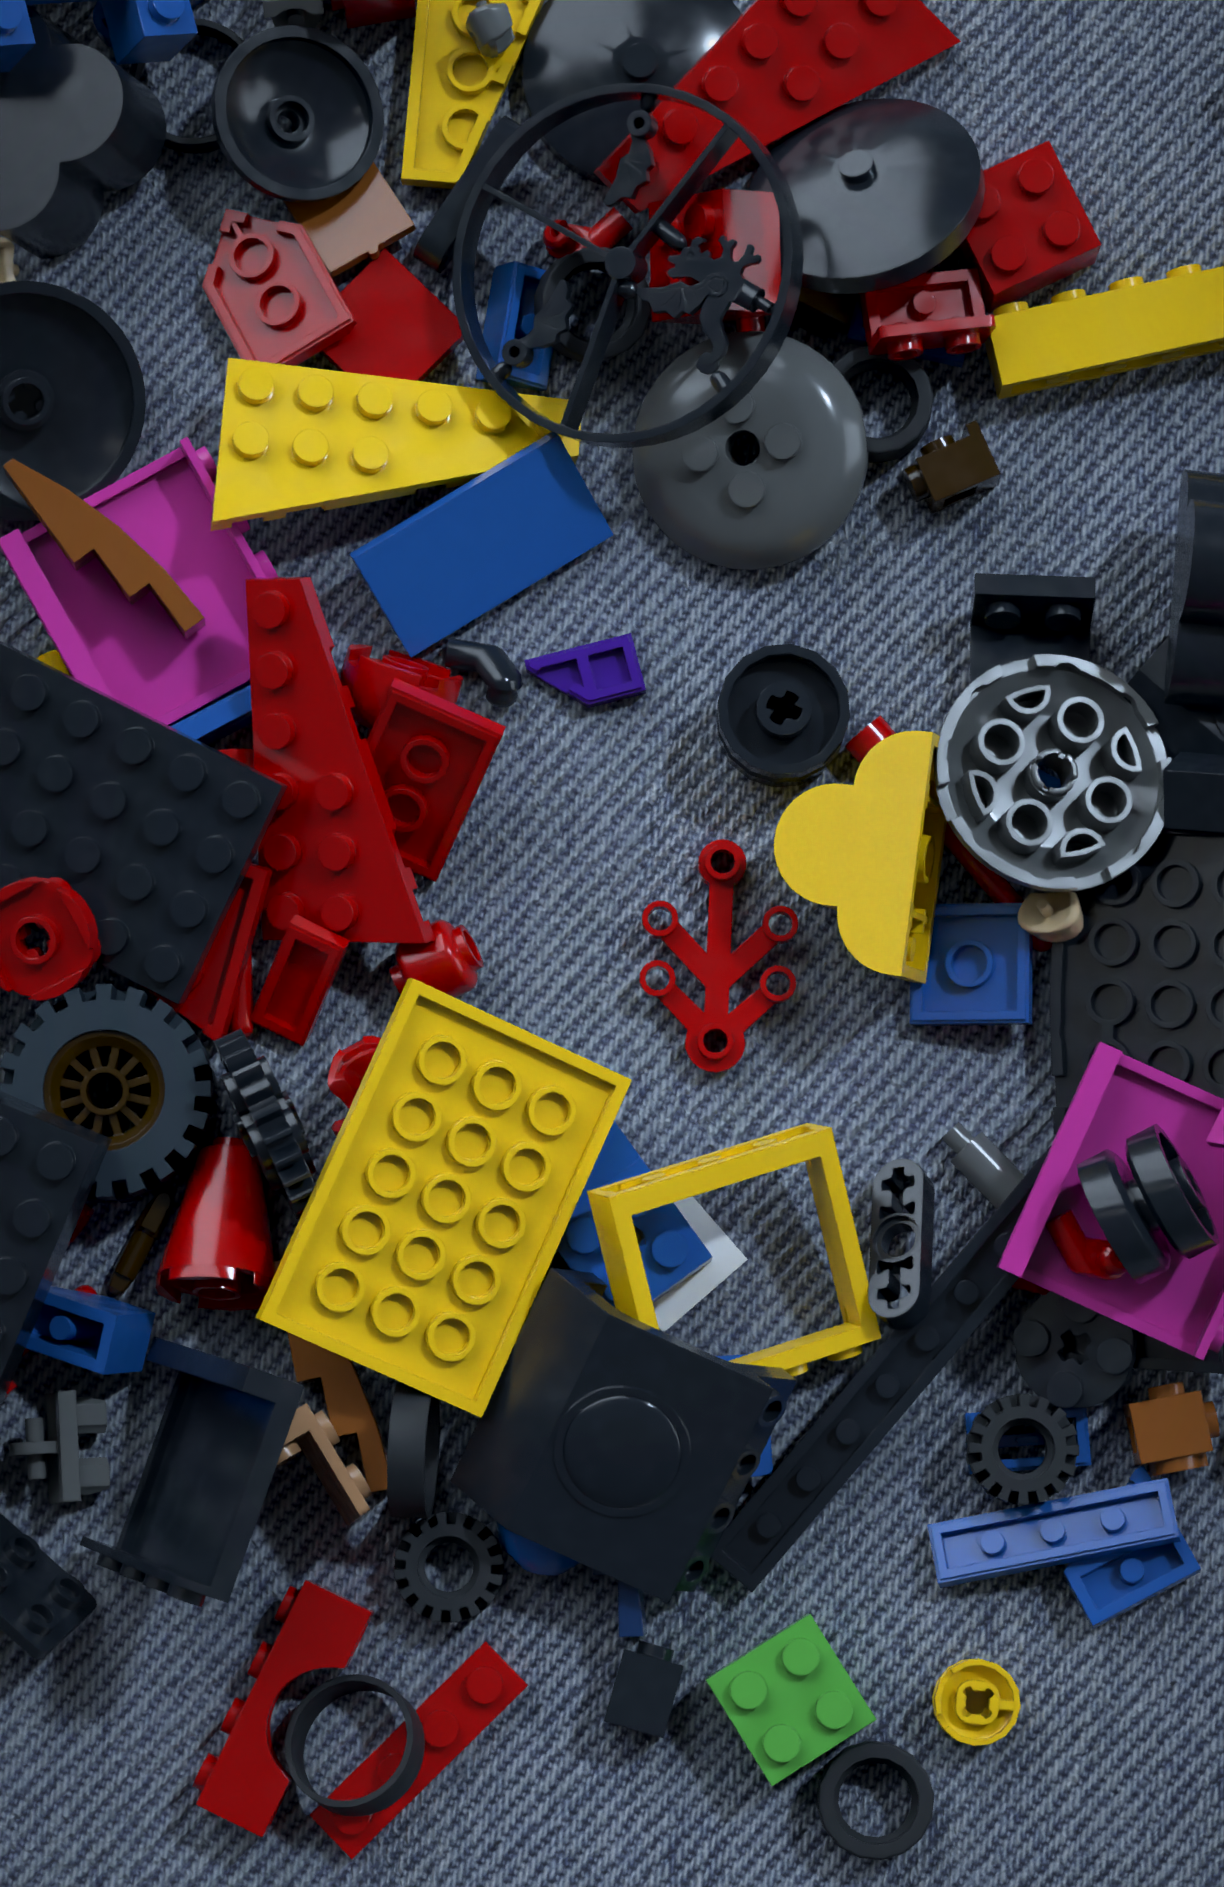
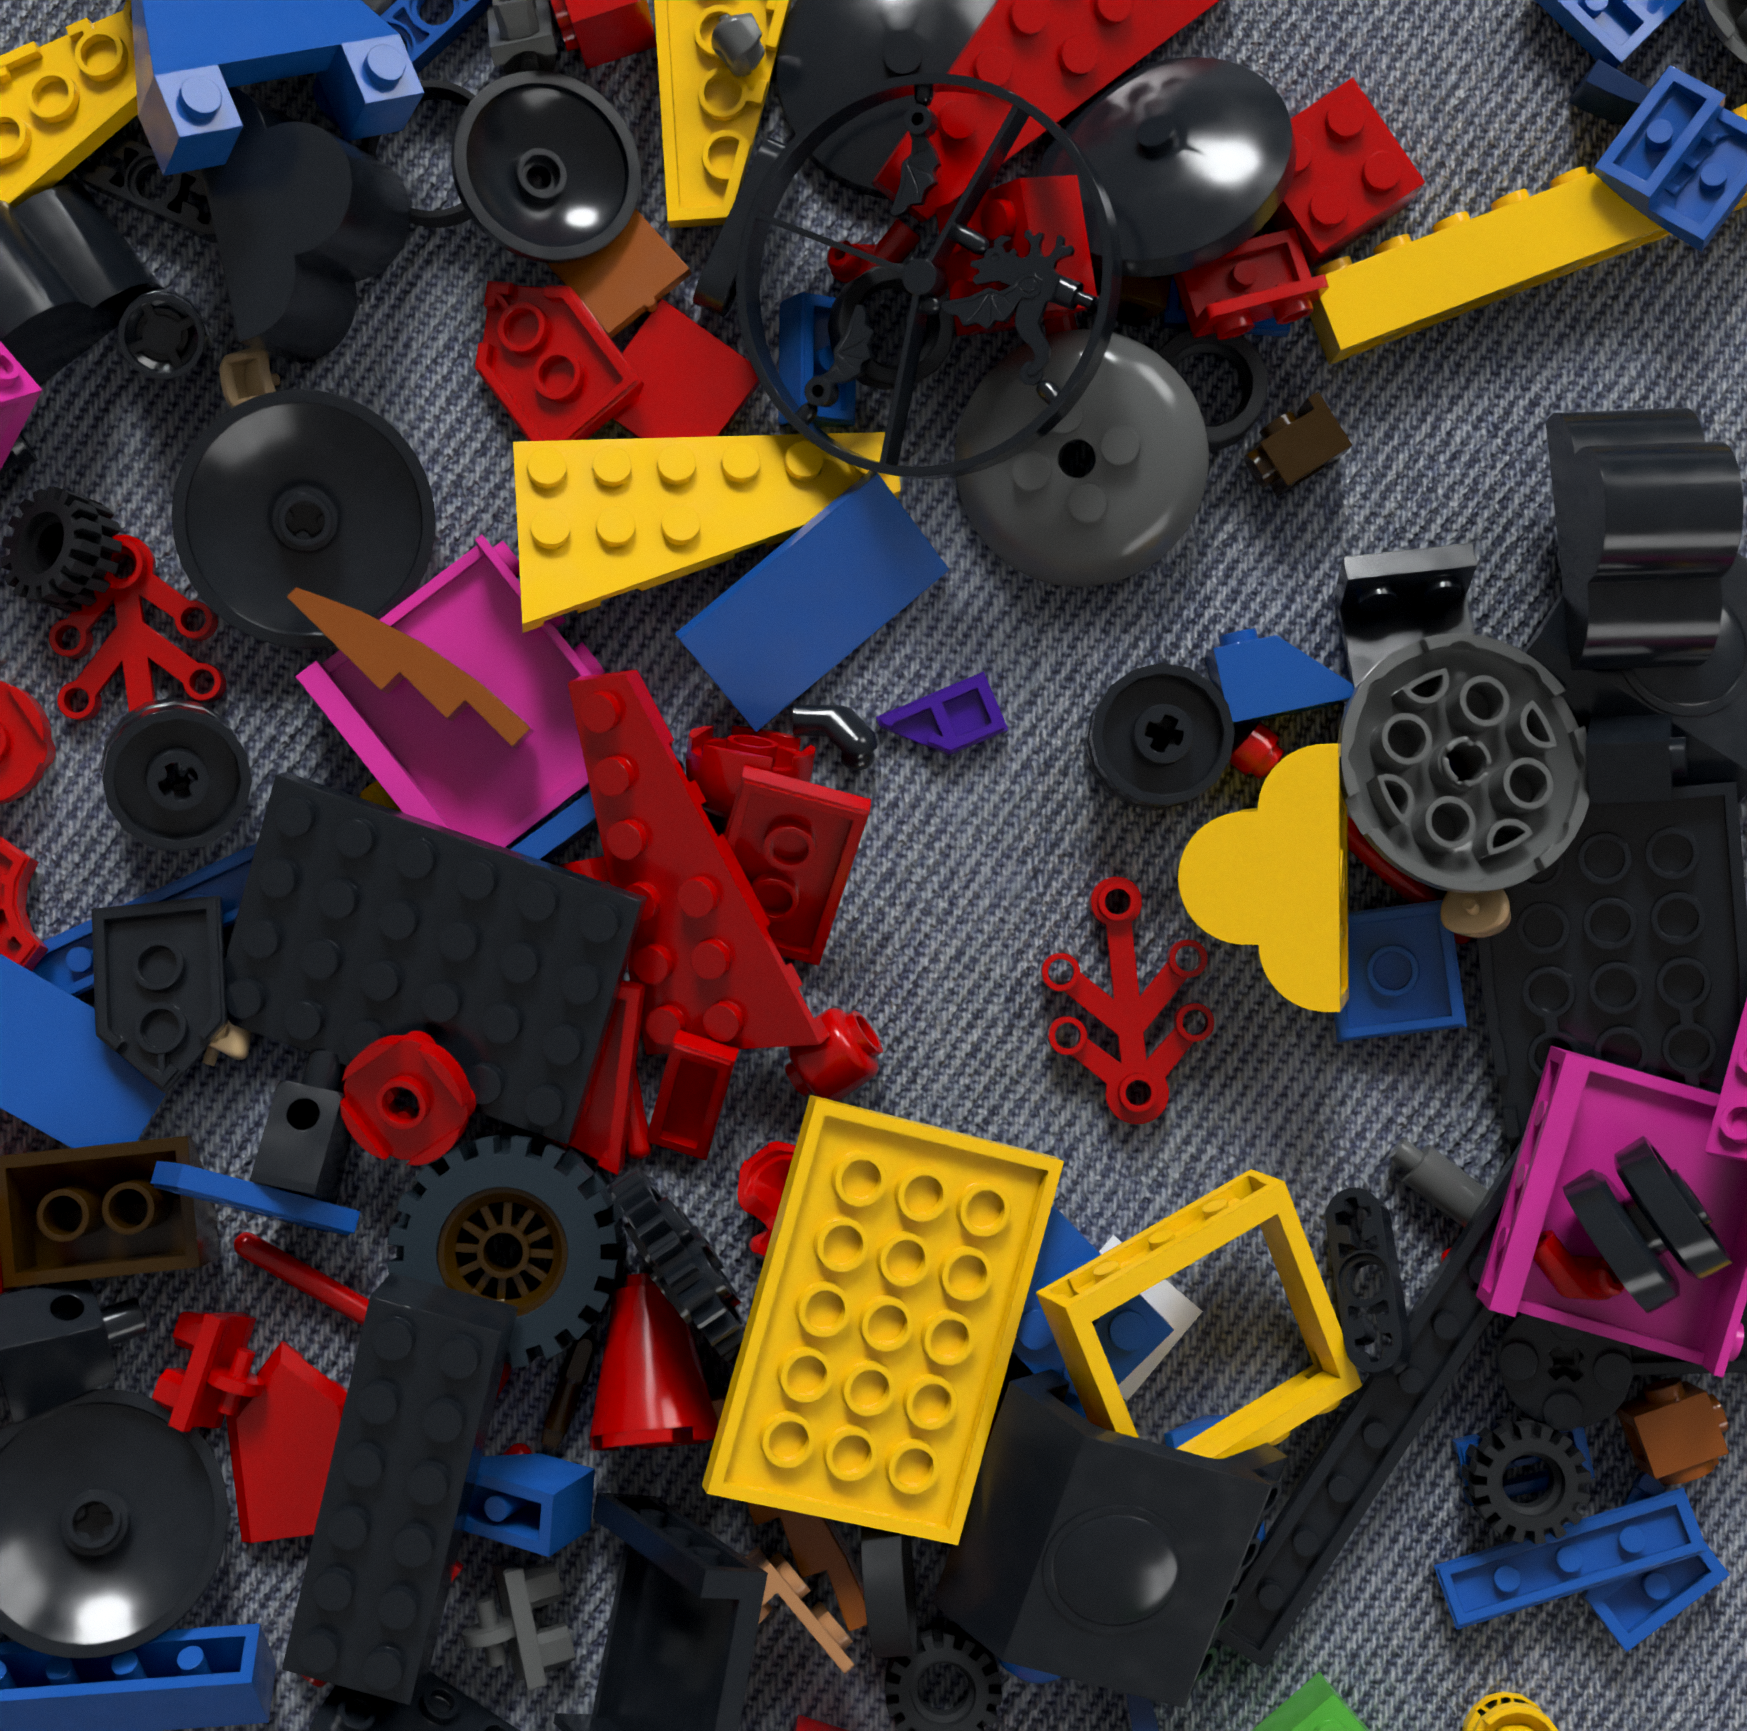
camera: 10 degrees left, 5 degrees up
(893, 678) = (1271, 678): none -> blue slope

